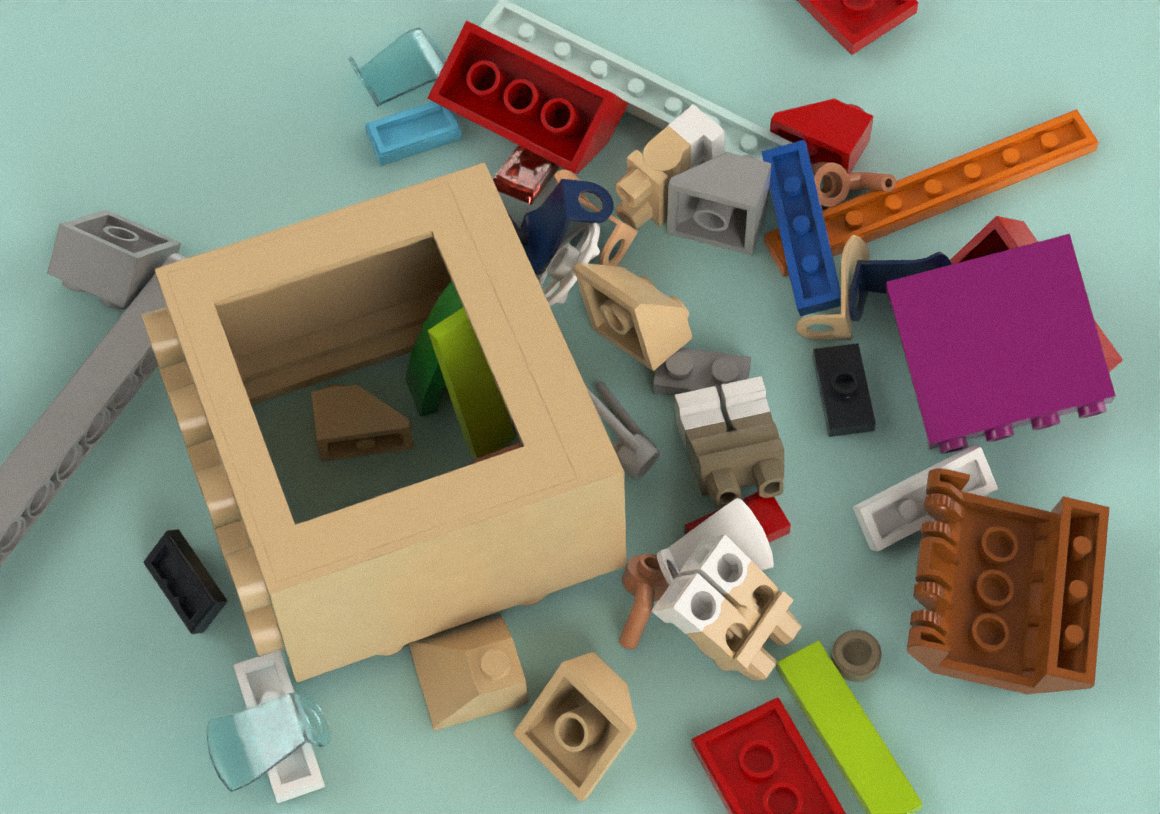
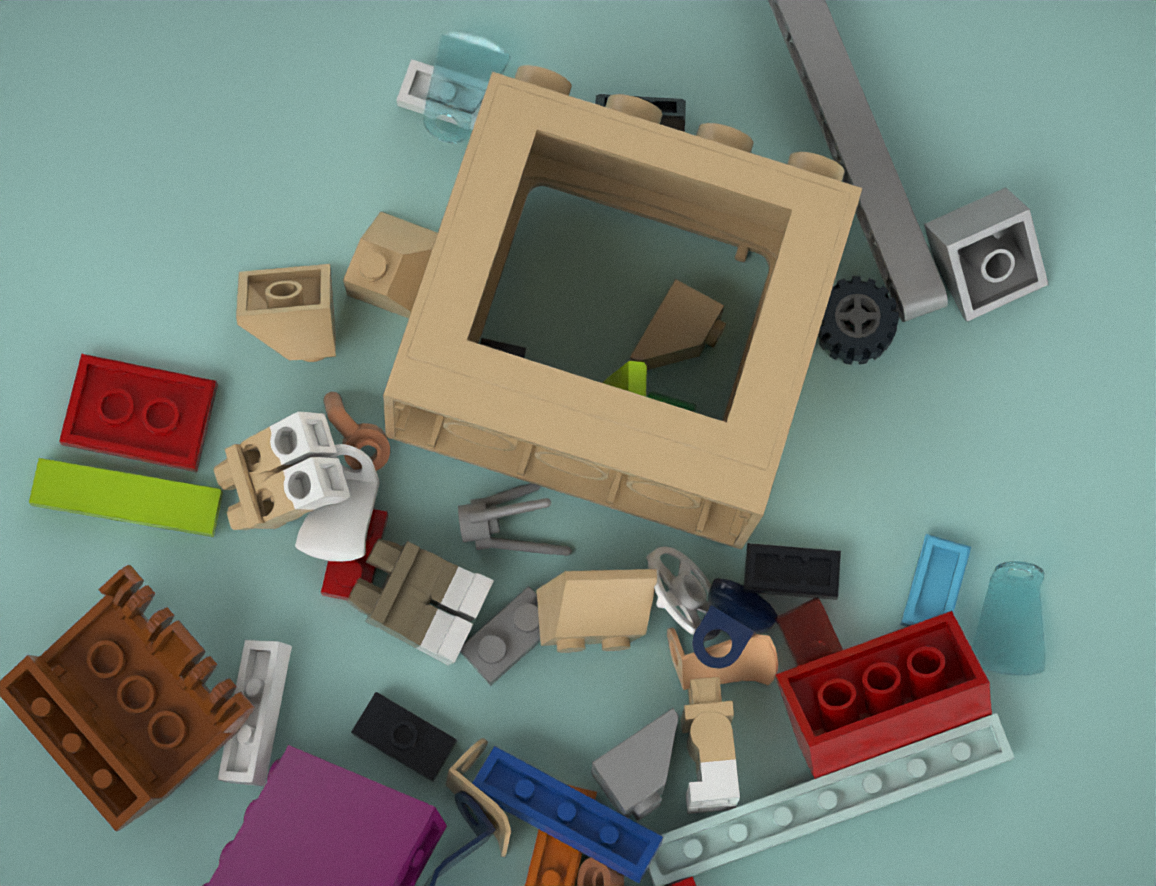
camera: 125 degrees right, 15 degrees up
(856, 655) = (180, 556): dark tan tile -> none

